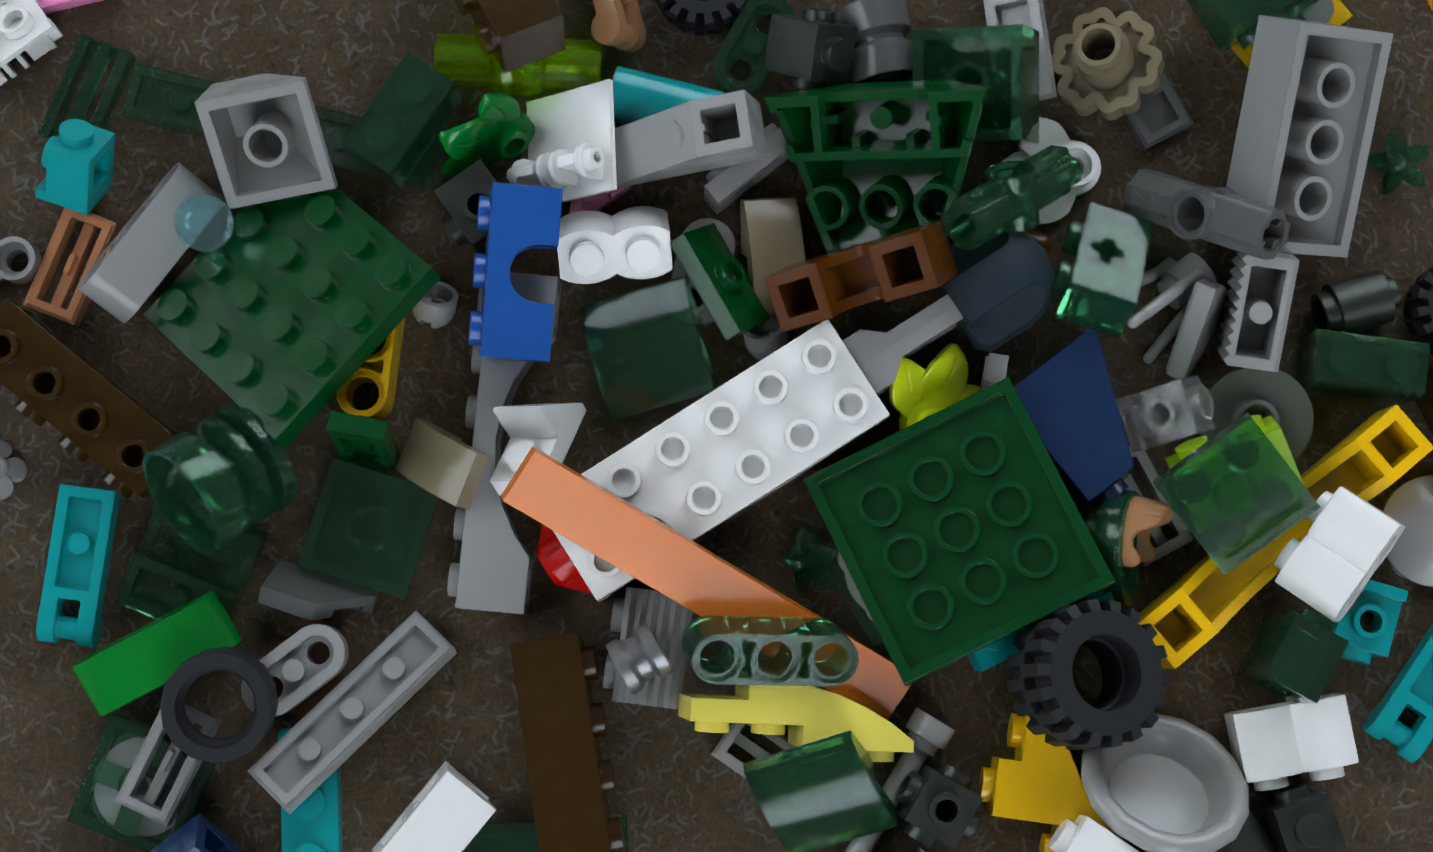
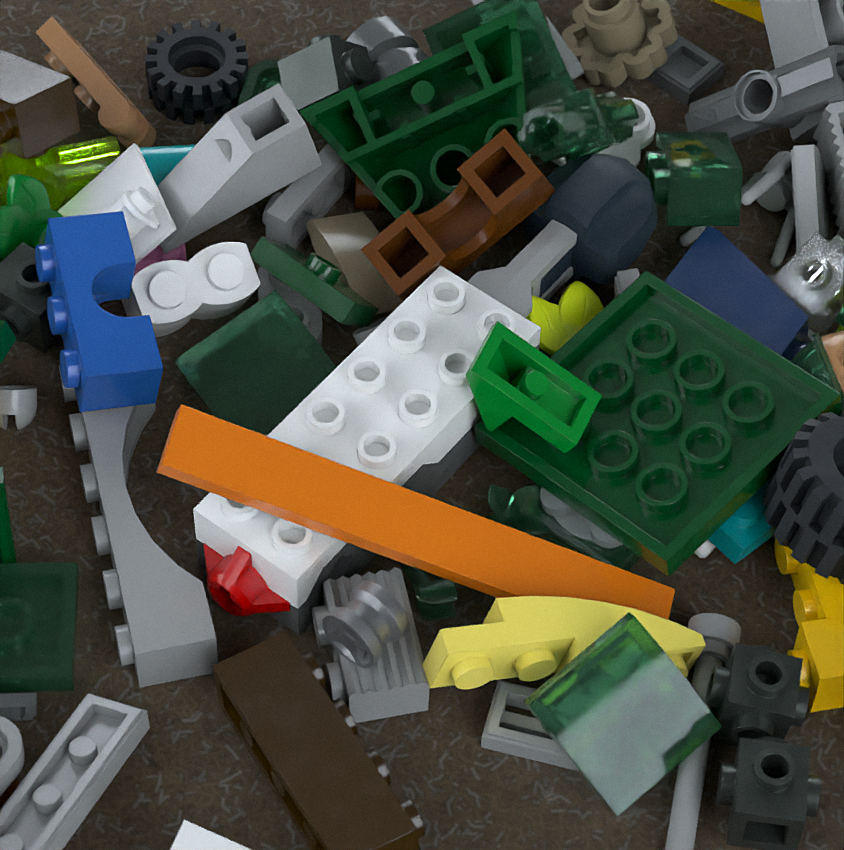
camera: 20 degrees left, 30 degrees down
(442, 463) = (74, 521): dark tan slope -> none
(543, 426) = (159, 496): white slope -> none
(789, 667) = (529, 547): beam -> none
(853, 489) = (523, 383): none -> green slope

